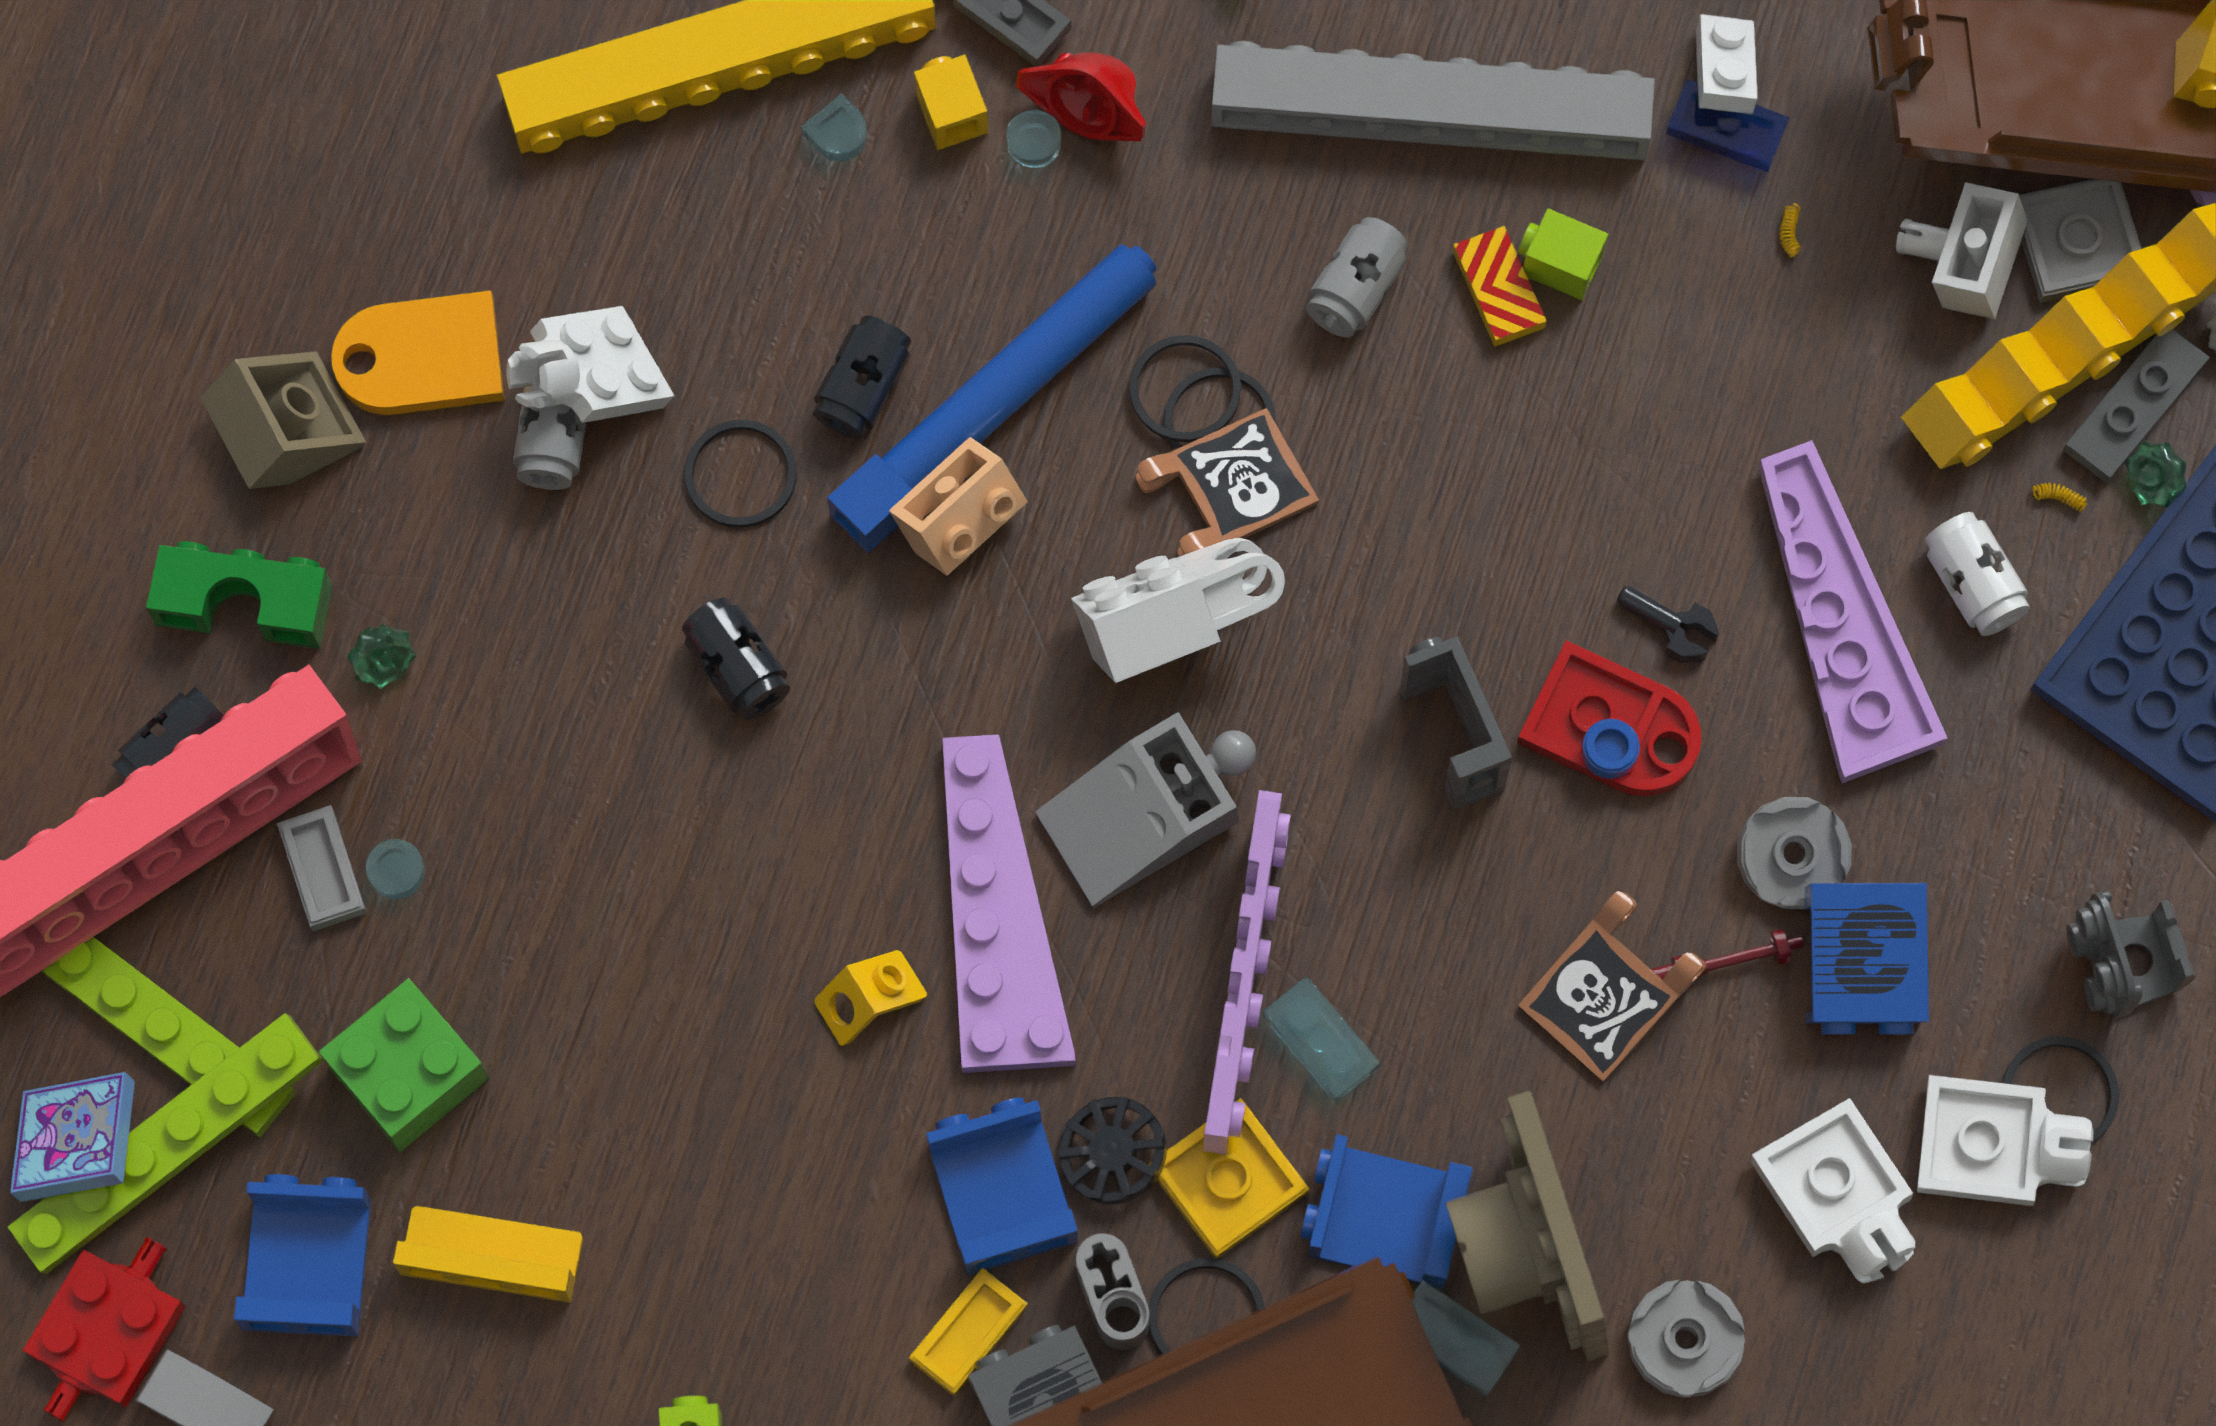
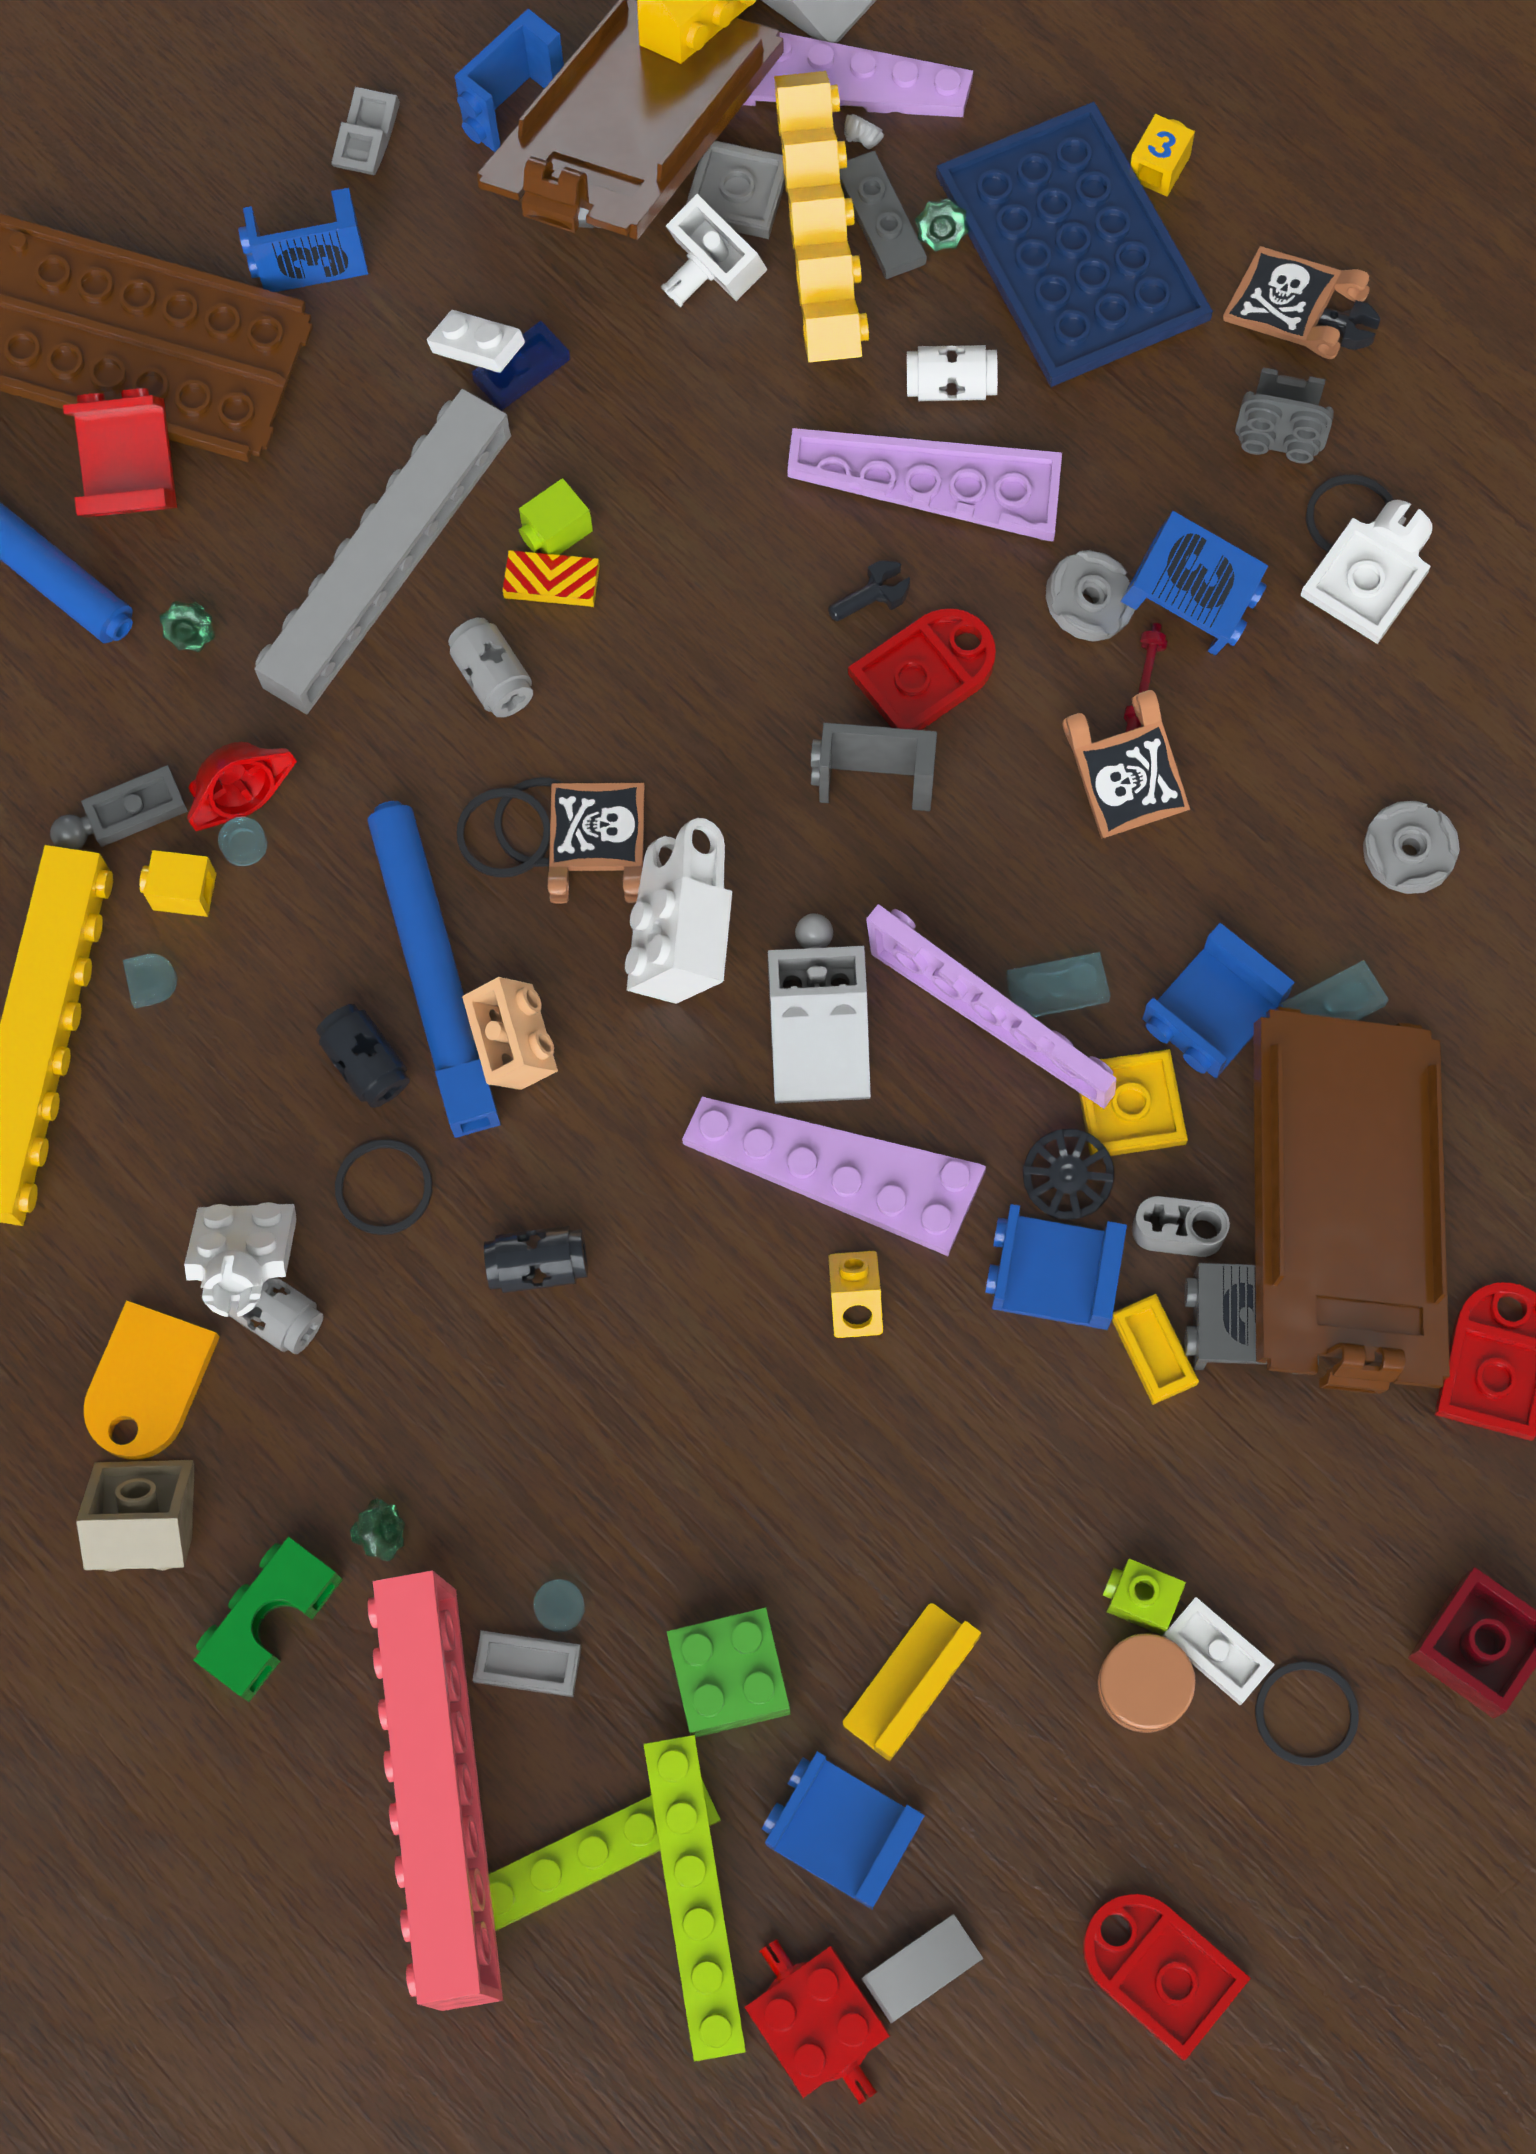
camera: 60 degrees left, 0 degrees up
(72, 1137) = (651, 1969): tile -> none
(181, 718) = (356, 1710): black piece -> none
(1188, 1266) = (1223, 1128): black piece -> none
(1523, 1238) = (1308, 892): dark tan piece -> none
(1610, 748) = (949, 676): blue tile -> none
(1791, 248) = (635, 372): yellow leg -> none
(1840, 1191) = (1356, 690): white plate -> none
(2044, 492) = (918, 293): yellow leg -> none

